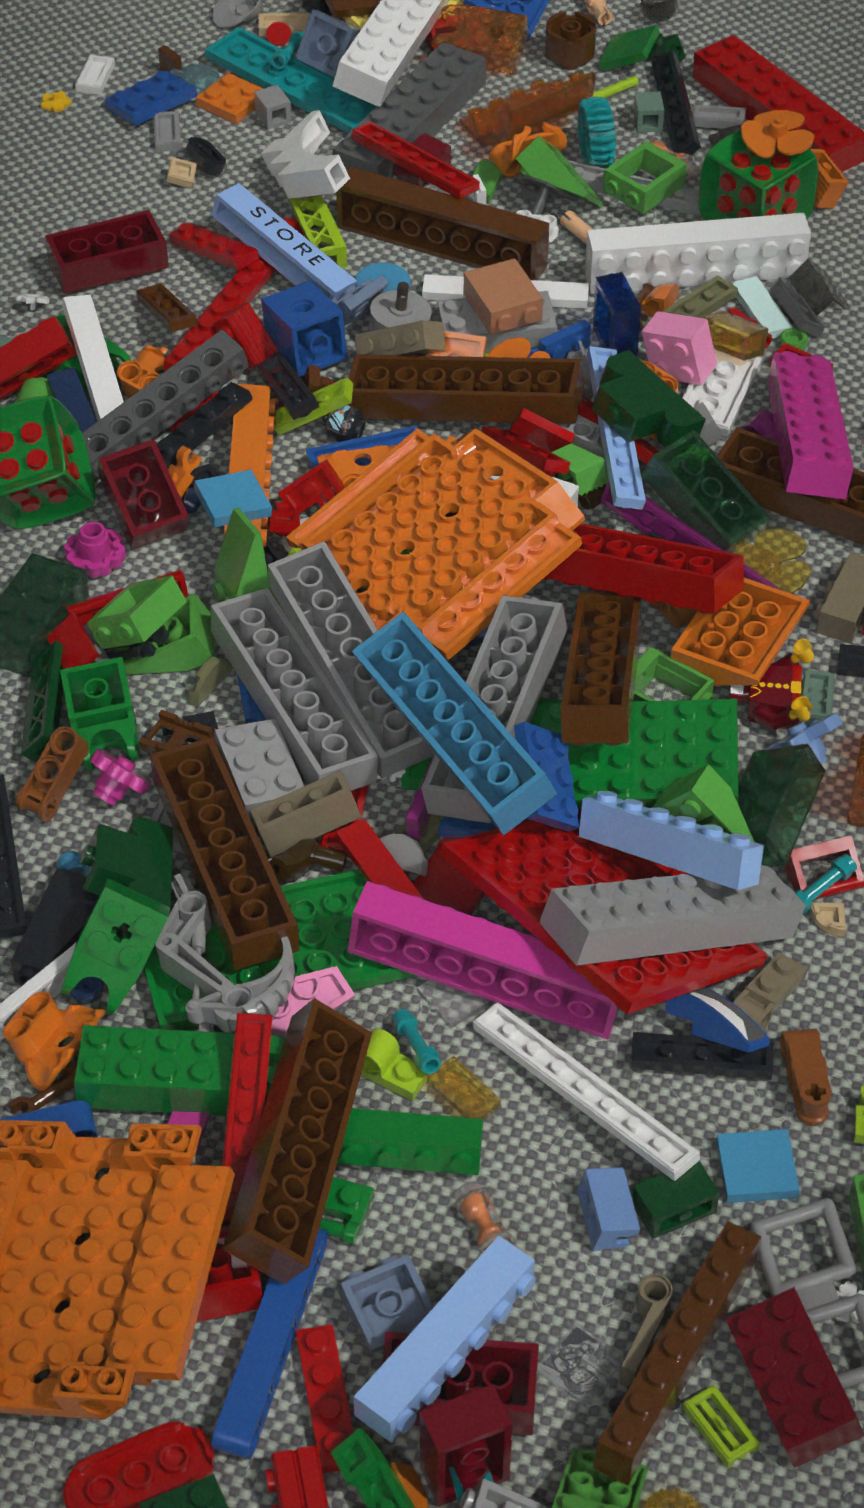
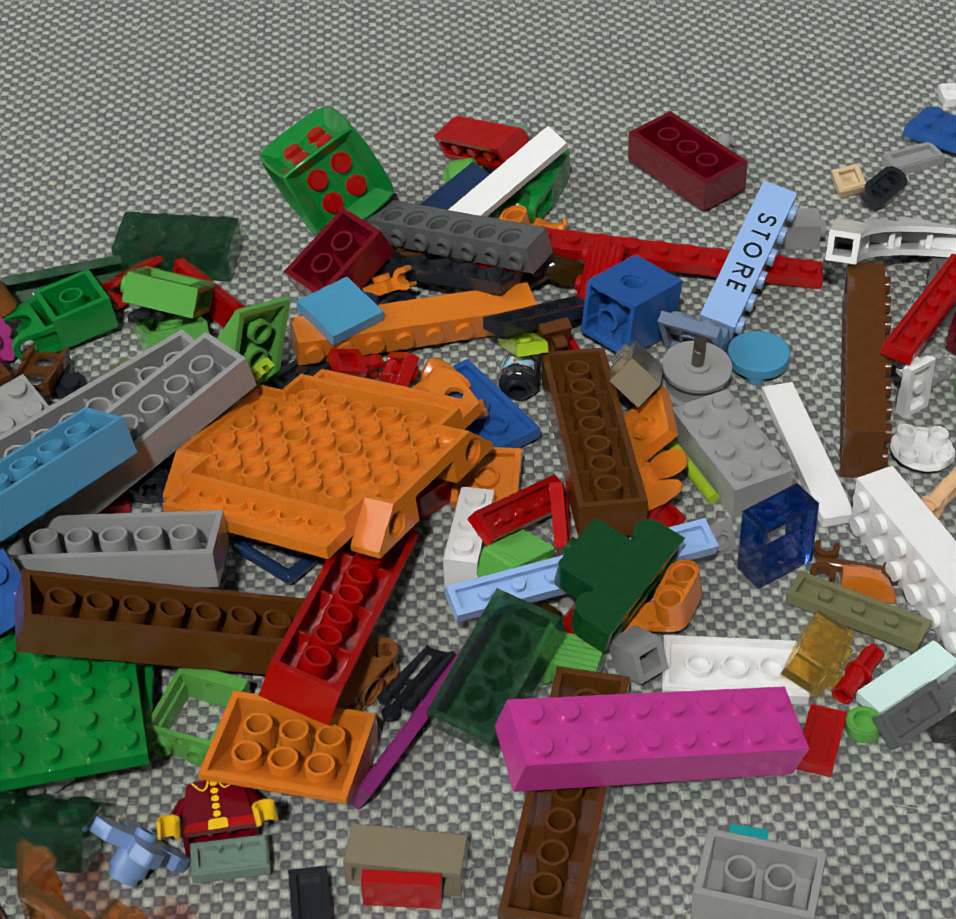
camera: 75 degrees right, 5 degrees down
(32, 299) = (605, 141): white plant -> none
(56, 101) = (909, 82): yellow plant -> none
(95, 549) = (271, 260): dark pink plant -> none
(166, 307) = (622, 215): reddish brown tile -> none
(213, 246) = (725, 231): red plate -> none
(325, 223) = (811, 298): lime fence -> none
(503, 296) = (738, 424): nougat brick -> none
(565, 340) = (716, 503): blue plate -> none
(680, 346) = (749, 600): bright pink brick -> none
(770, 551) = (422, 773): clear yellow piece -> none

